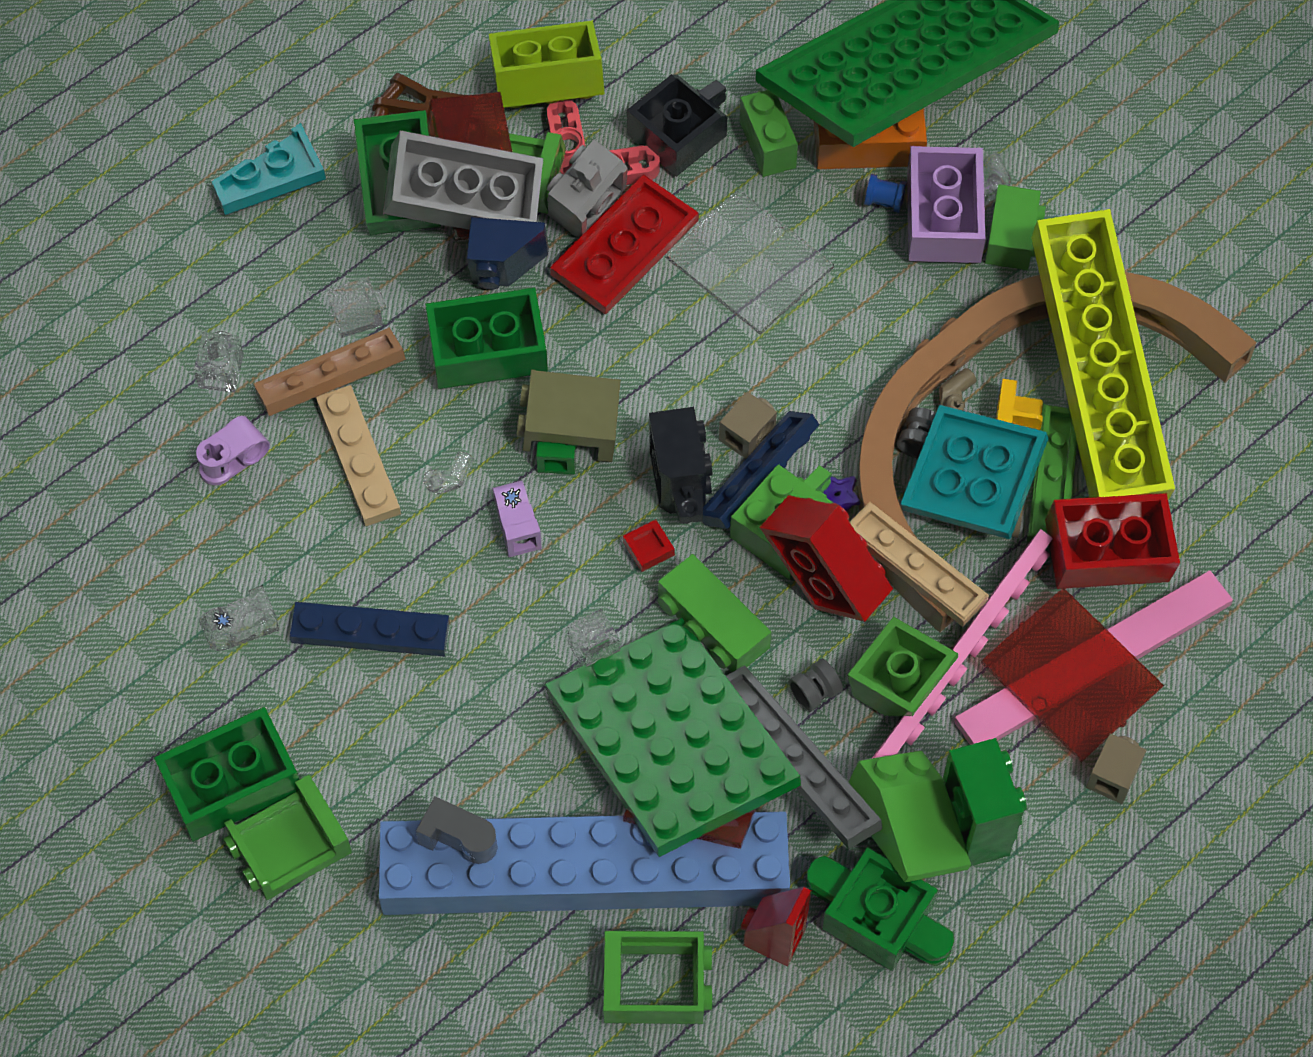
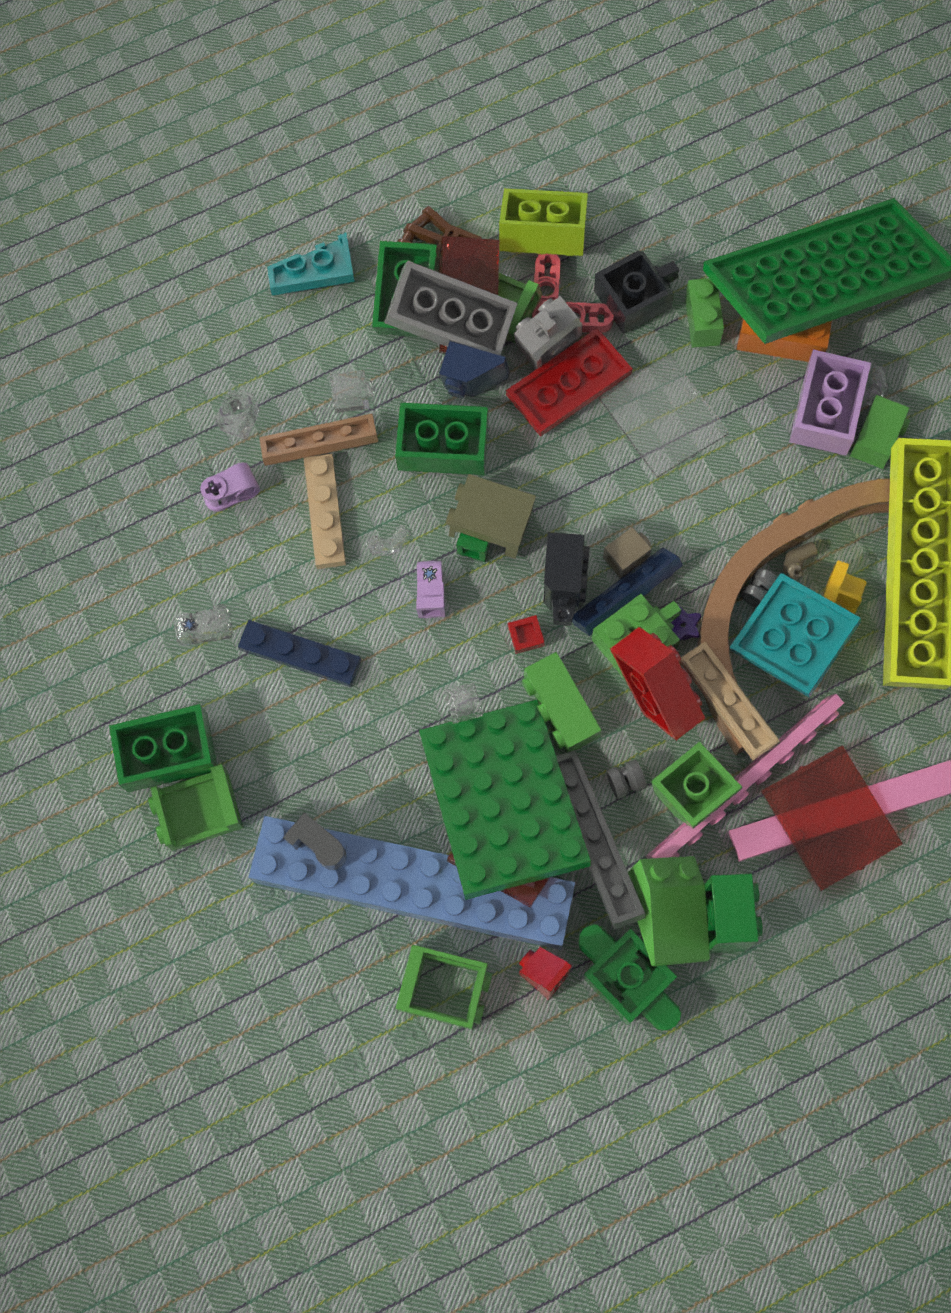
camera: 20 degrees right, 10 degrees up
(885, 193) = (784, 382): blue bush -> none
(1056, 468) = (859, 650): bright green tile -> none
(1112, 541) = (892, 715): red brick -> none
(1116, 767) = (847, 903): dark tan brick -> none

